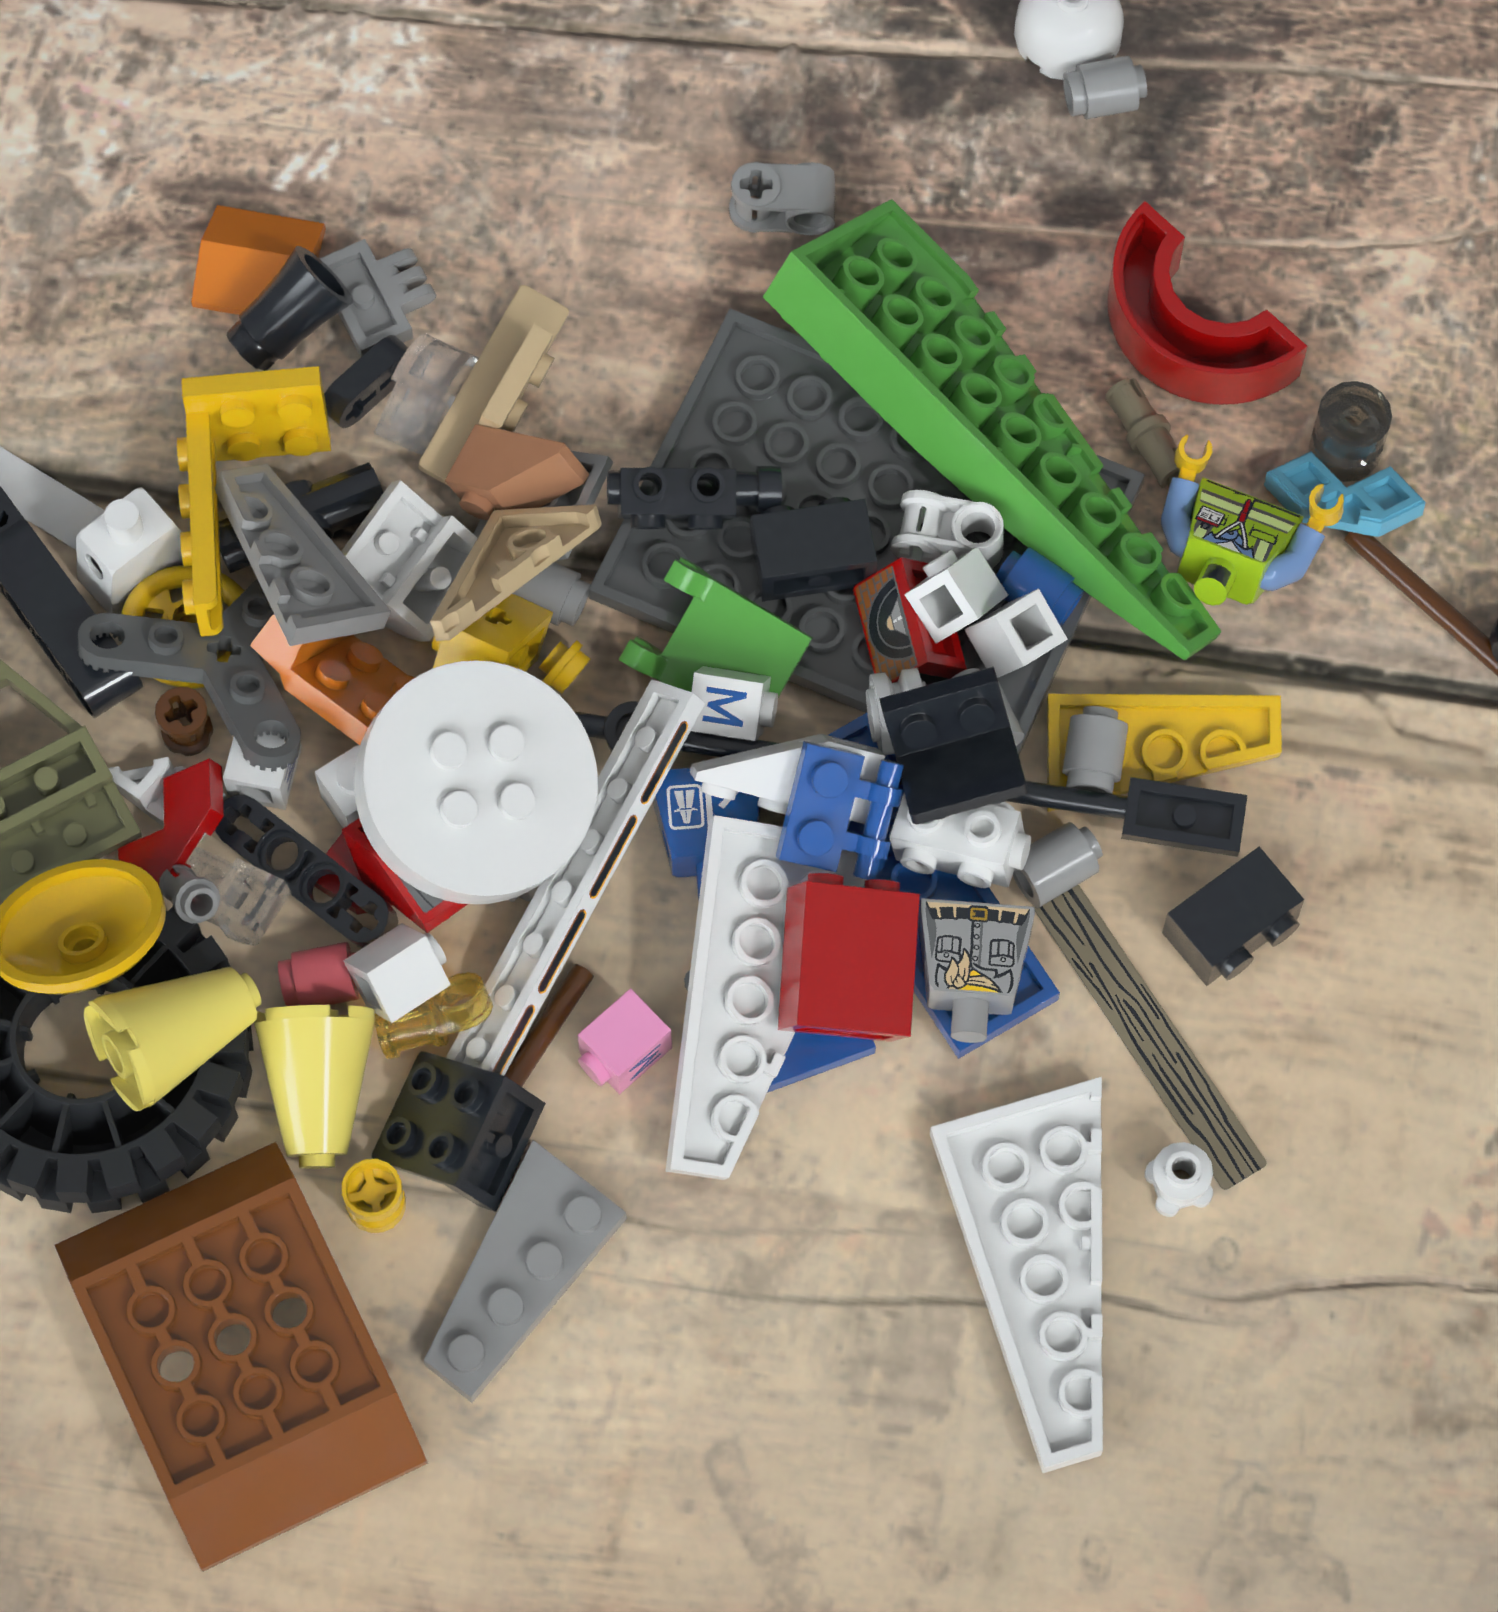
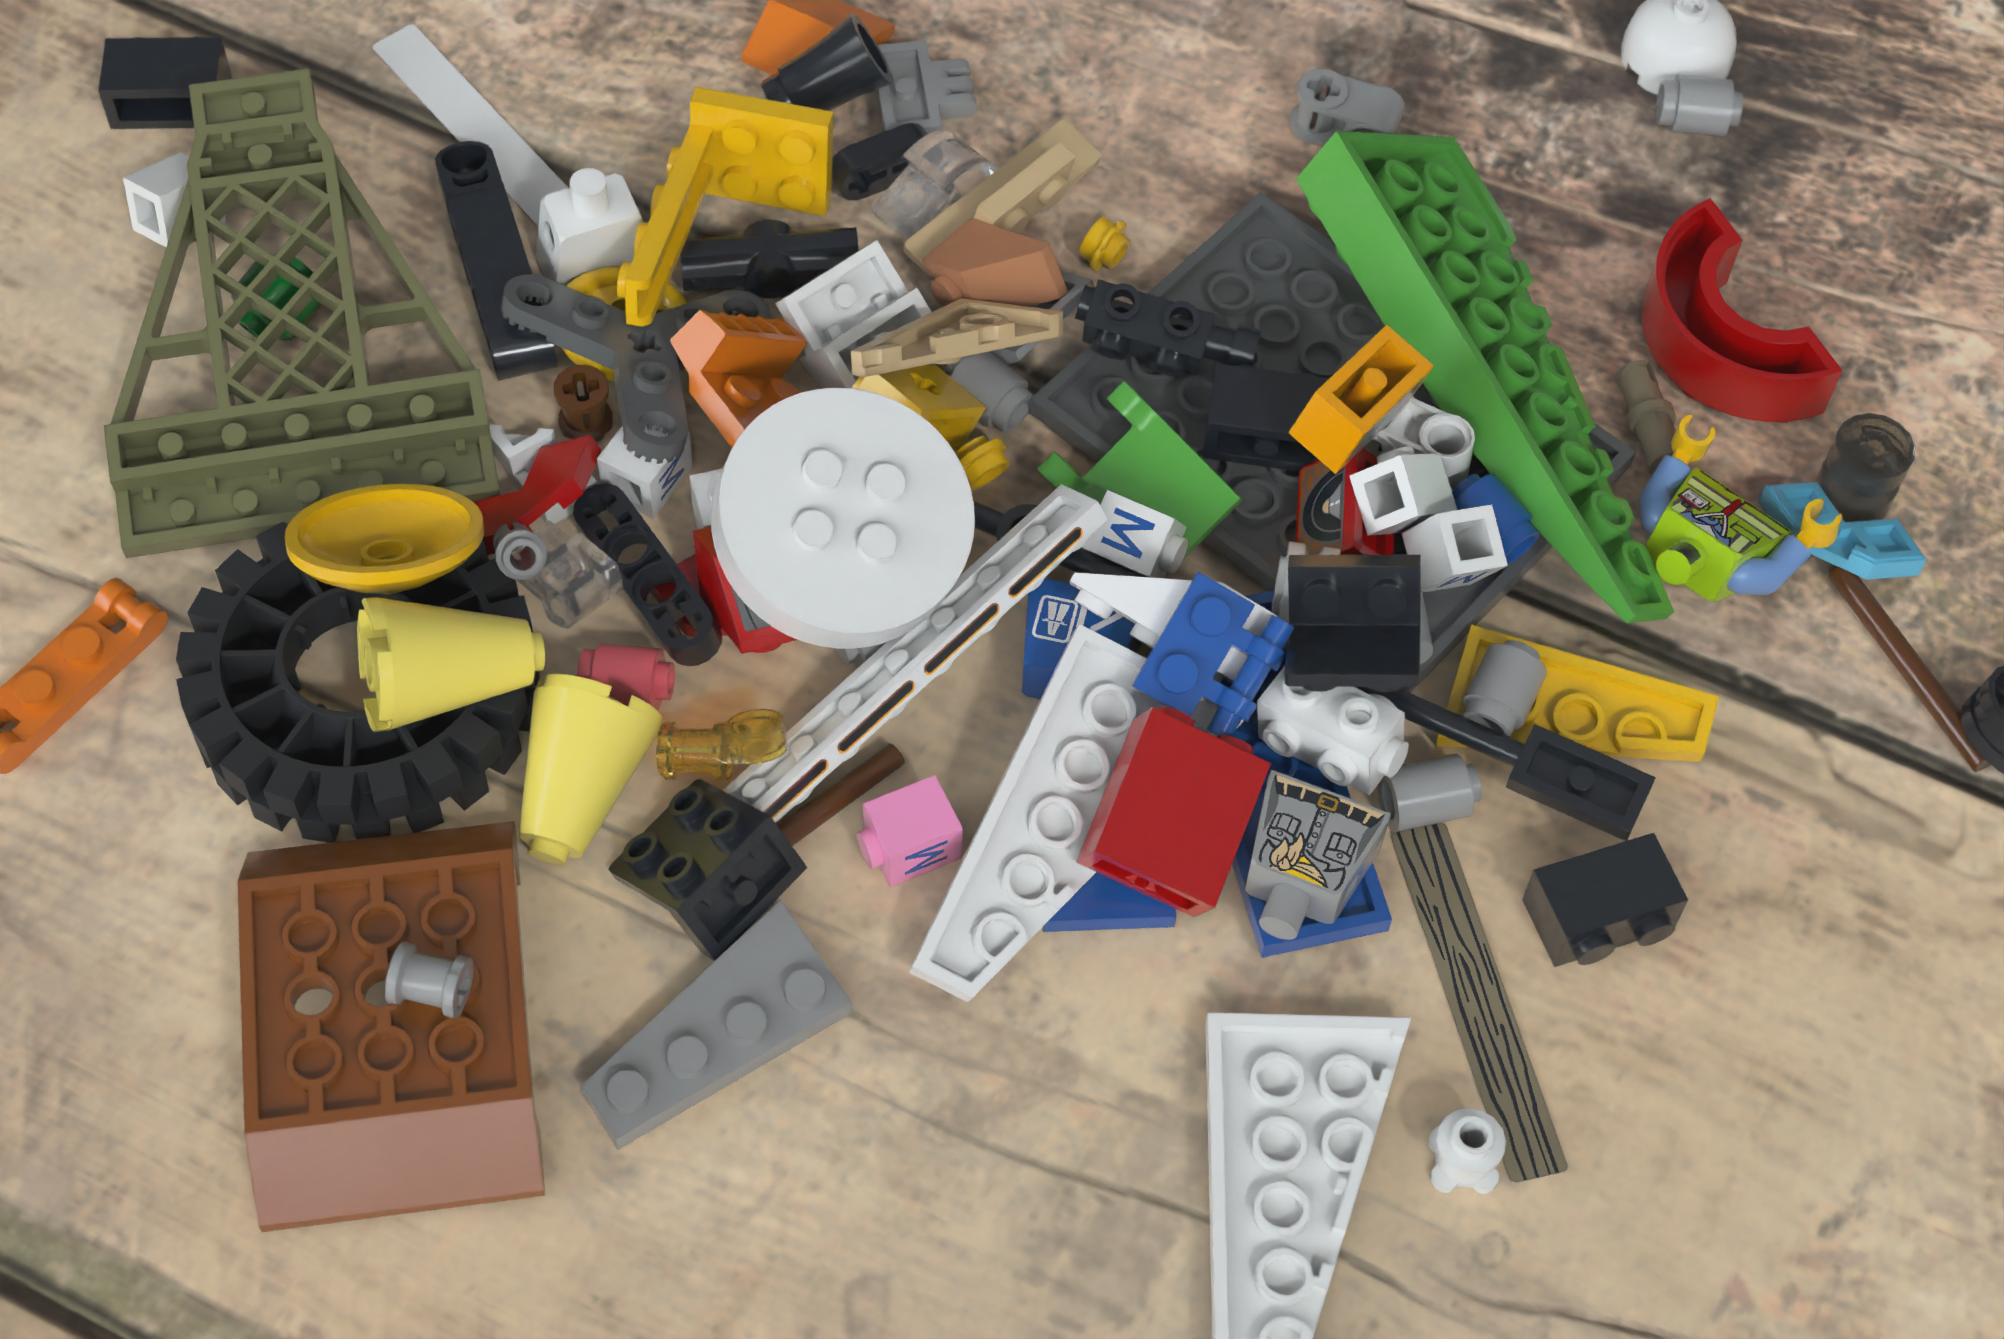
camera: 15 degrees right, 10 degrees down
(275, 1321) = (429, 979): none -> light grey bush
(296, 563) = (743, 278): light grey wing -> none
(369, 1184) = (584, 891): yellow wheel -> none
(398, 971) = (701, 686): white brick -> none
(602, 404) = (1105, 244): none -> yellow plate
(896, 523) = (1360, 399): none -> light orange brick

